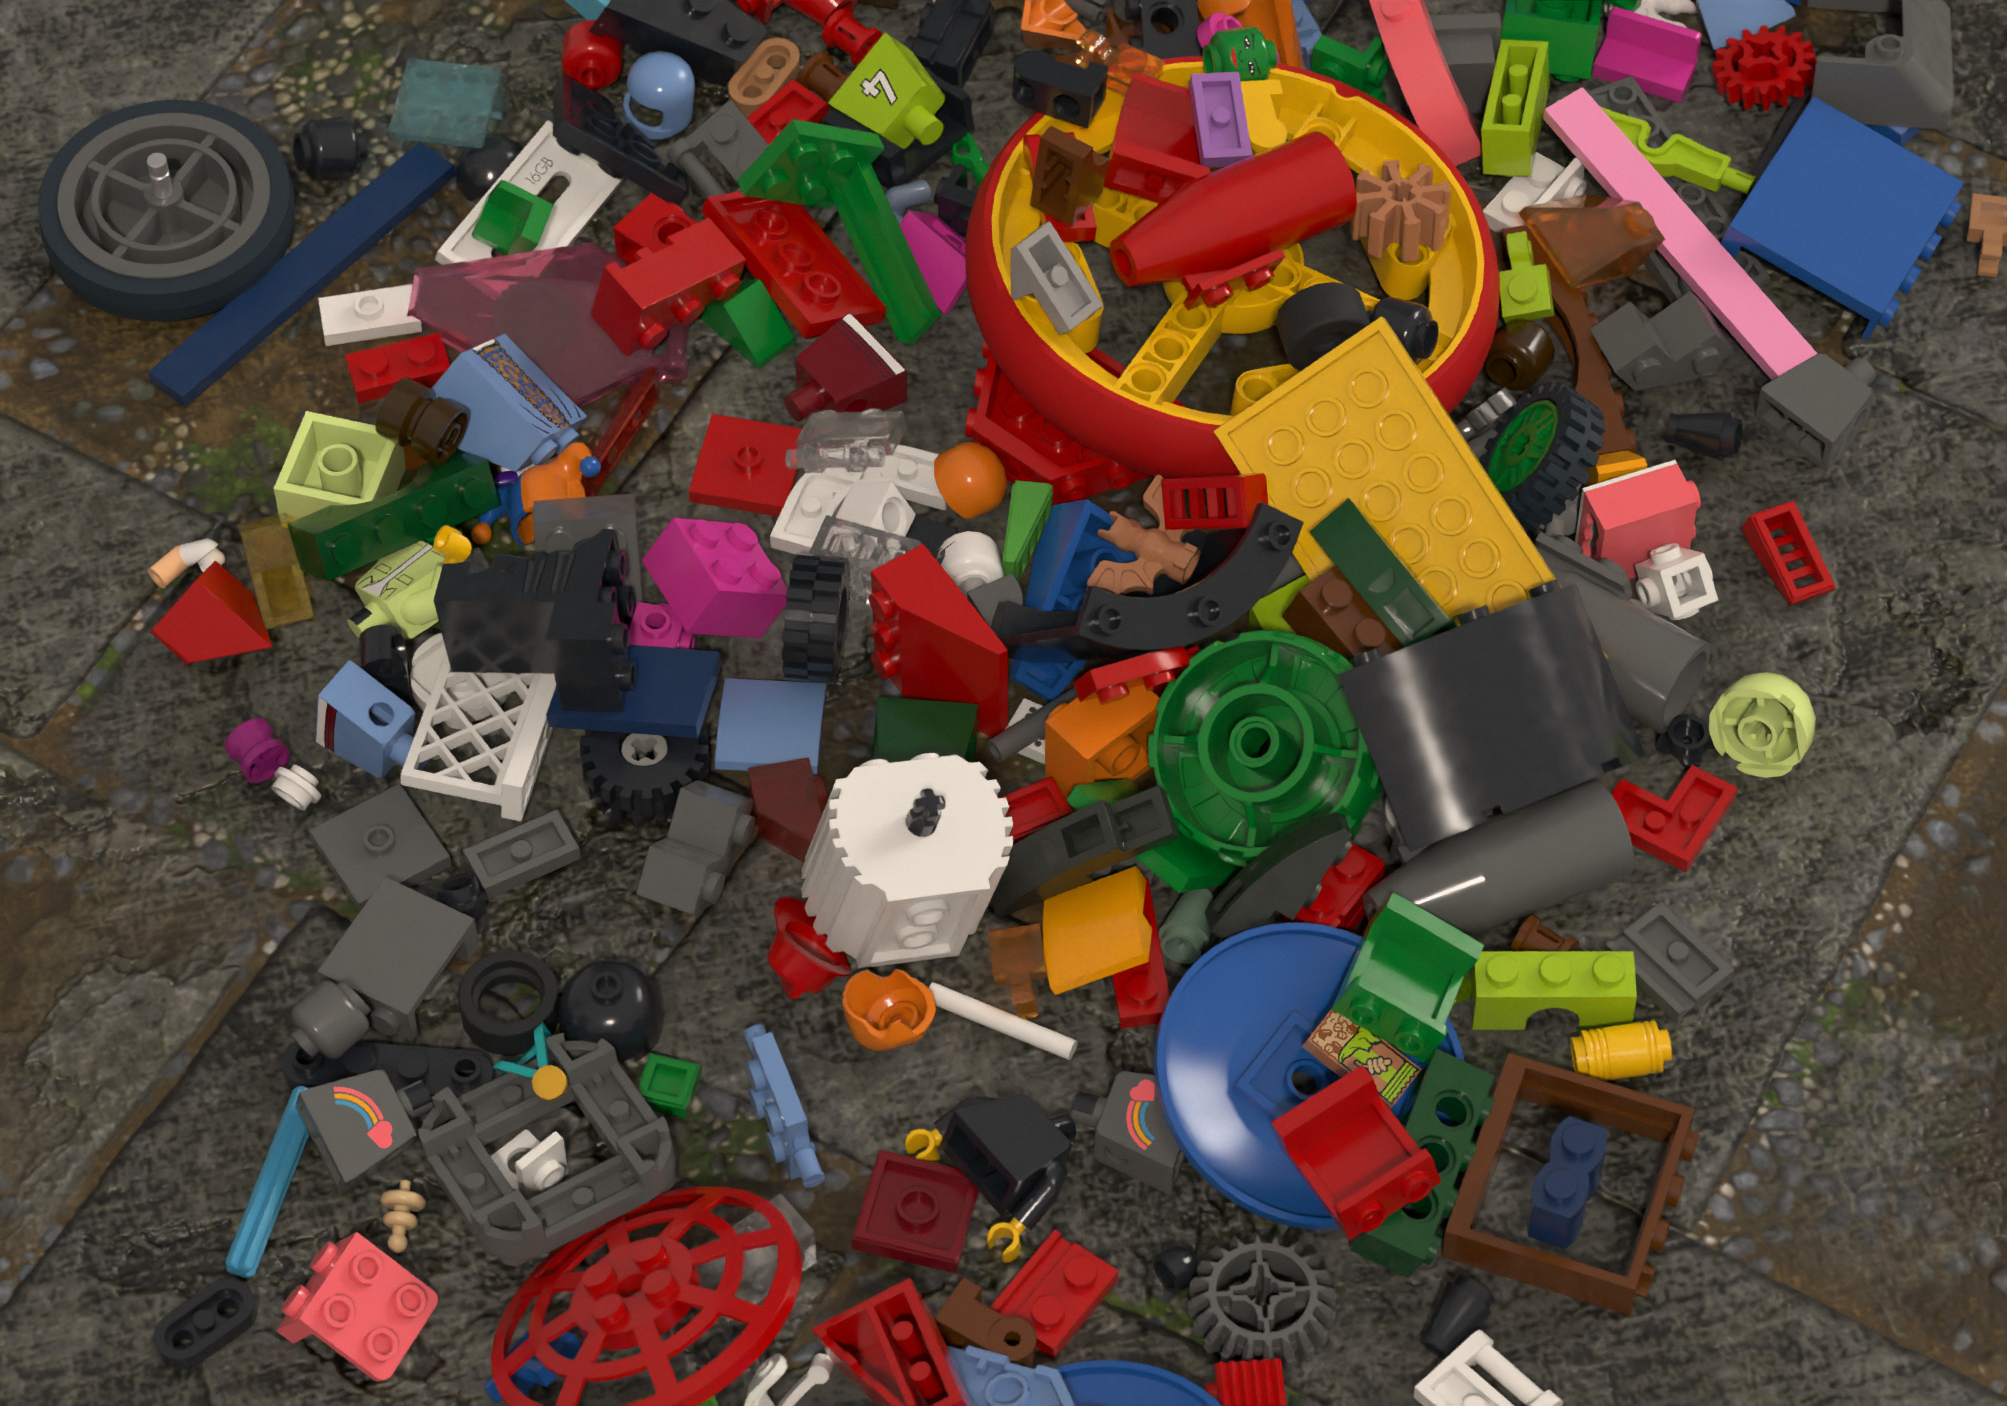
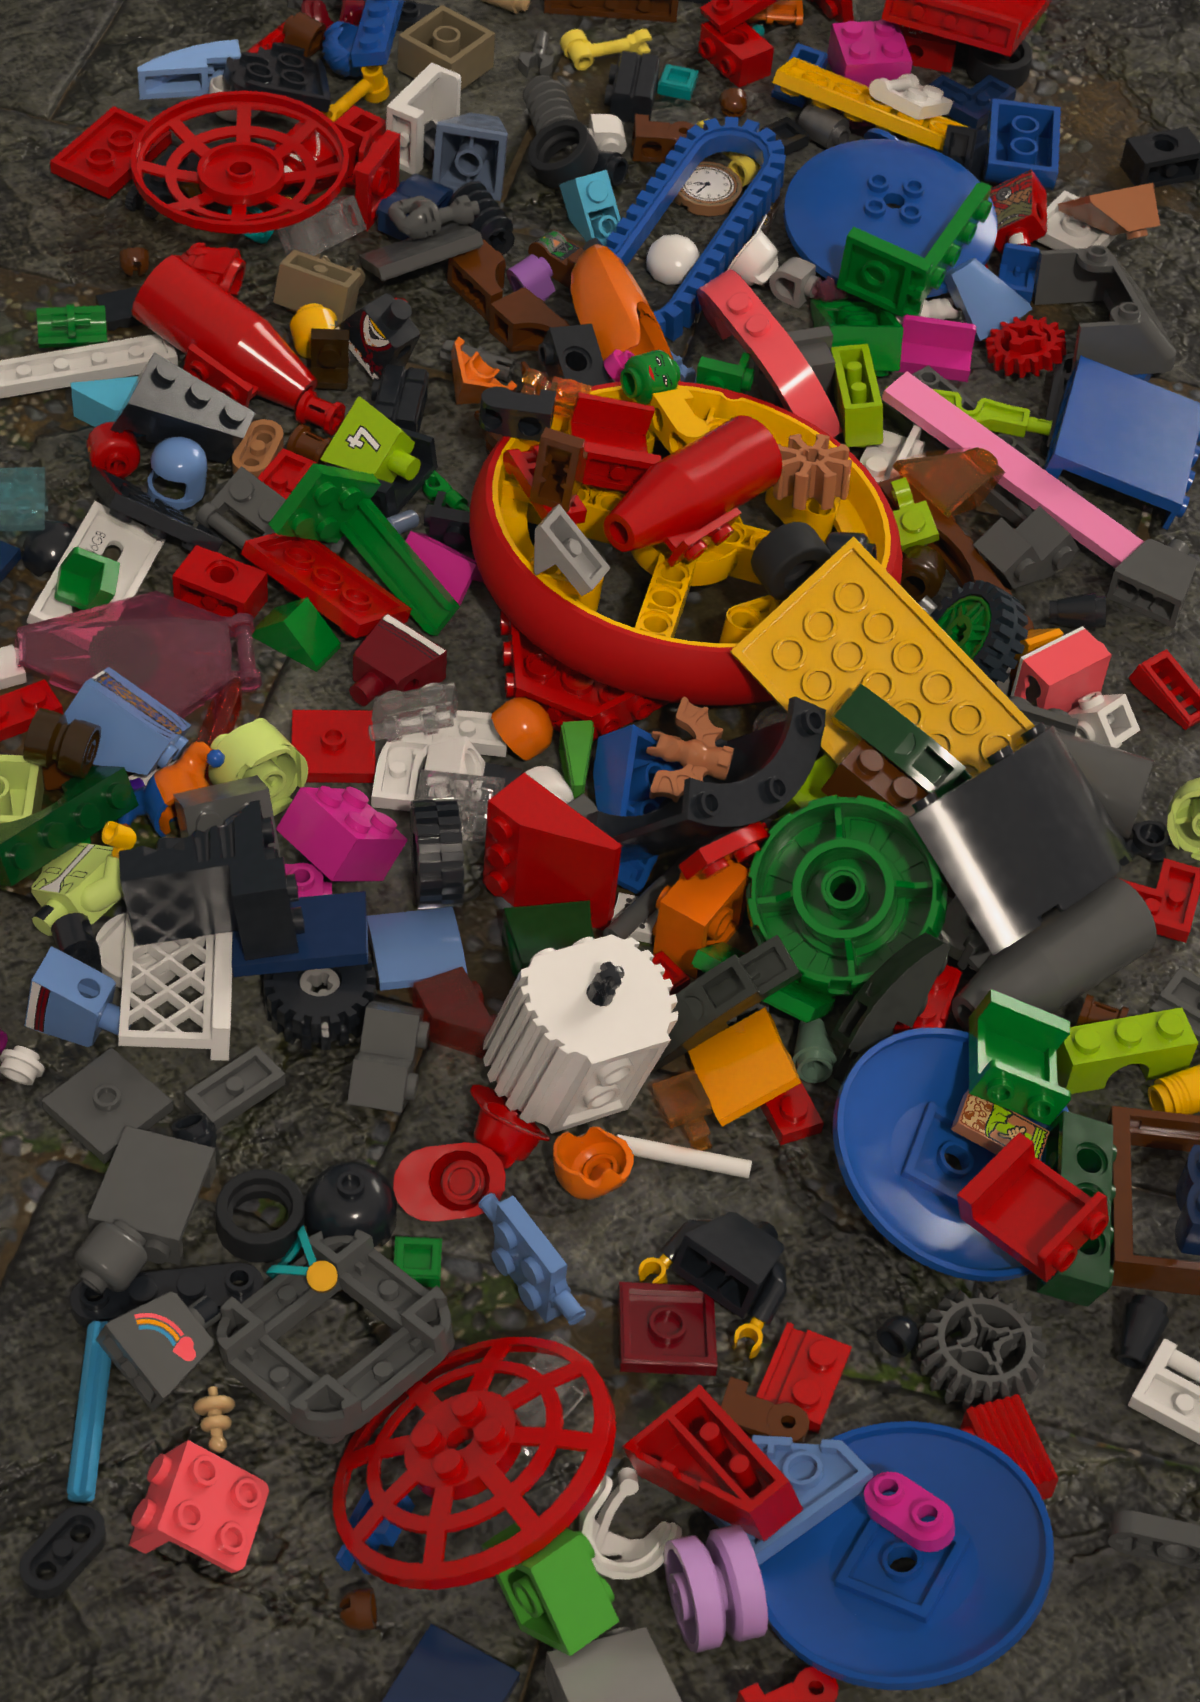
camera: 20 degrees left, 5 degrees down
(539, 1168) = (334, 1349): white bracket -> none
(656, 470) = (264, 752): none -> yellowish green brick
(667, 286) = (234, 611): red wedge -> none
(718, 1001) = (448, 1181): none -> red piece
(1132, 1131) = (828, 1225): dark grey torso -> none
(1219, 118) = (655, 418): medium lavender panel -> none
(1242, 495) = (775, 701): red slope -> none

